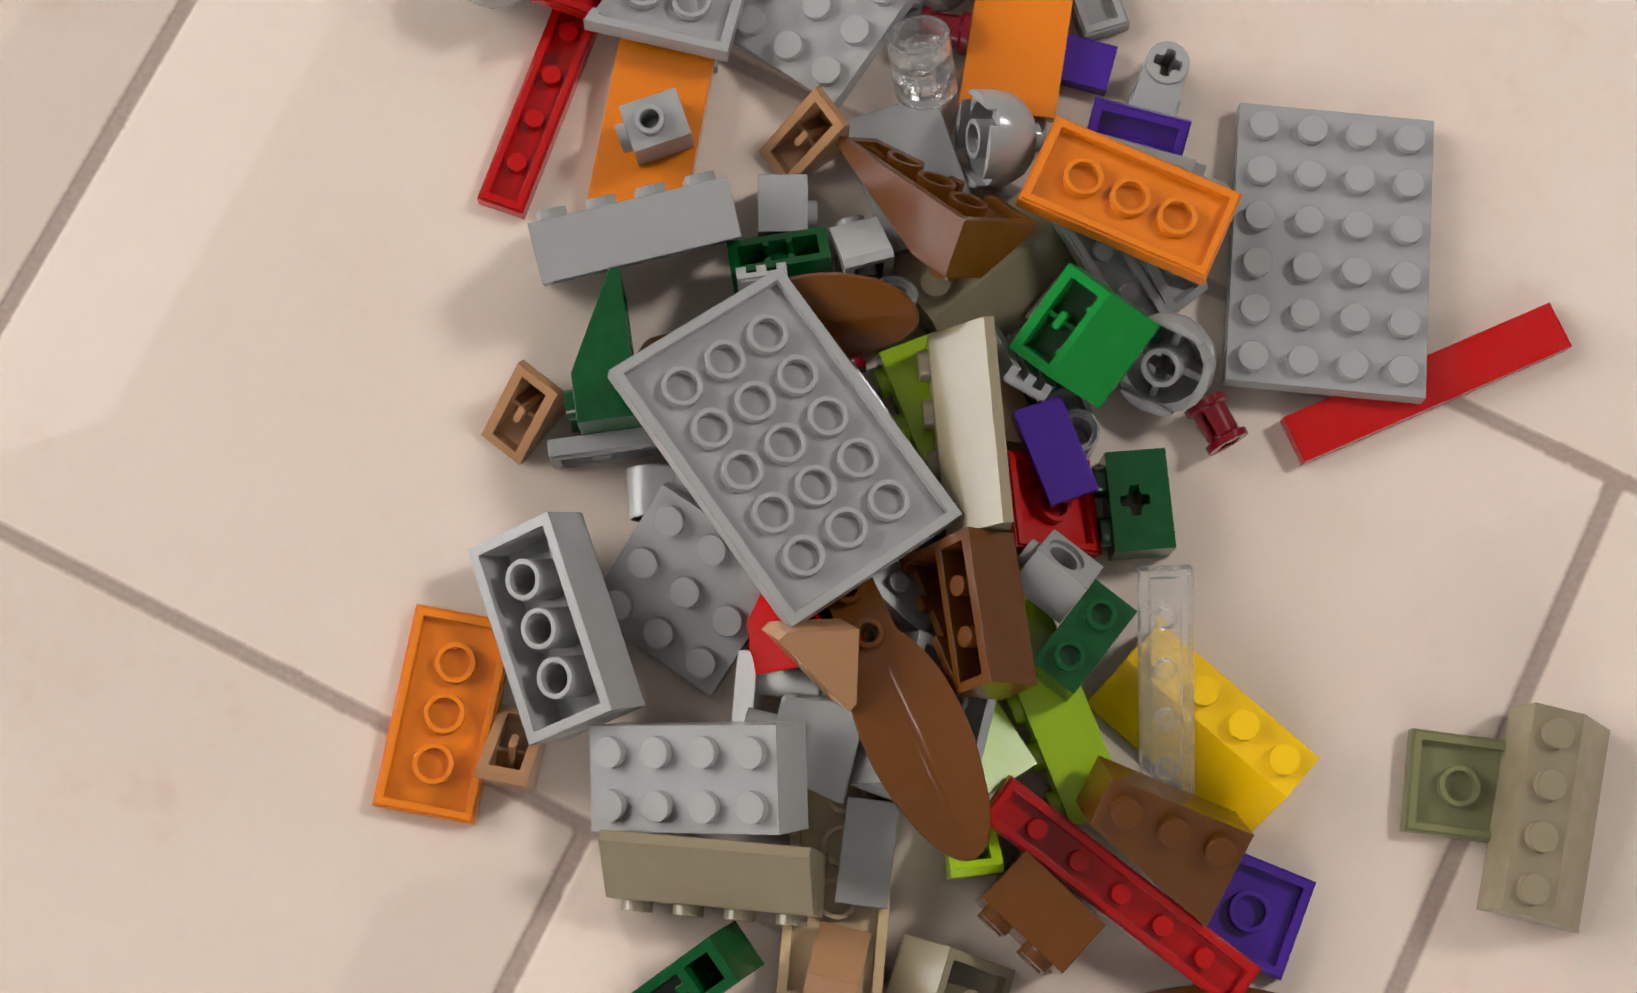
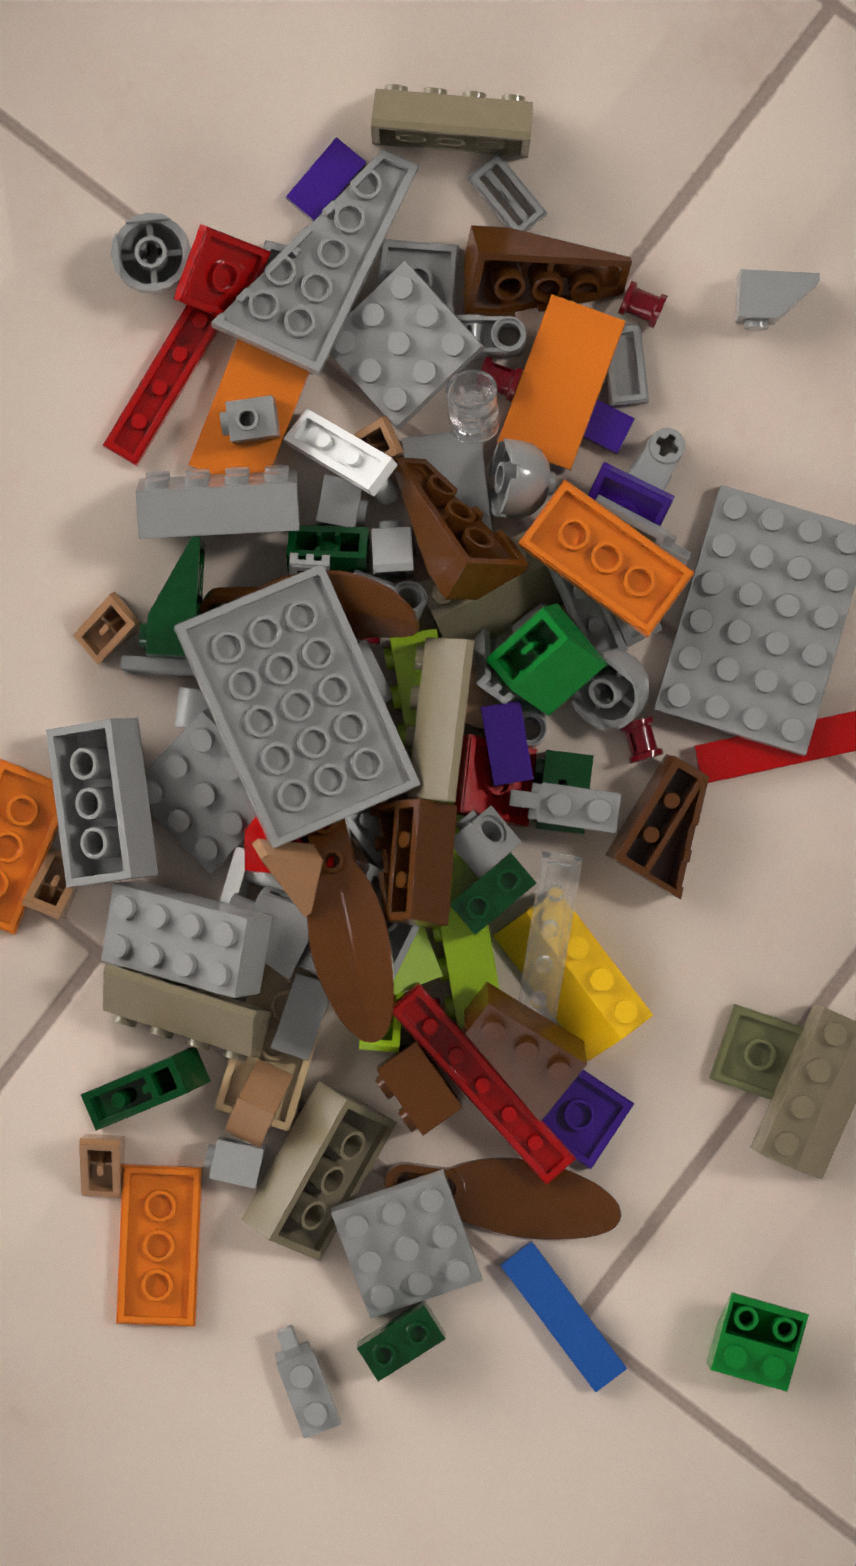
camera: 15 degrees right, 10 degrees up
(779, 148) = (344, 455): none -> white piece
(1151, 514) = (570, 806): none -> light grey hinge
(1269, 520) = (662, 826): none -> reddish brown wedge

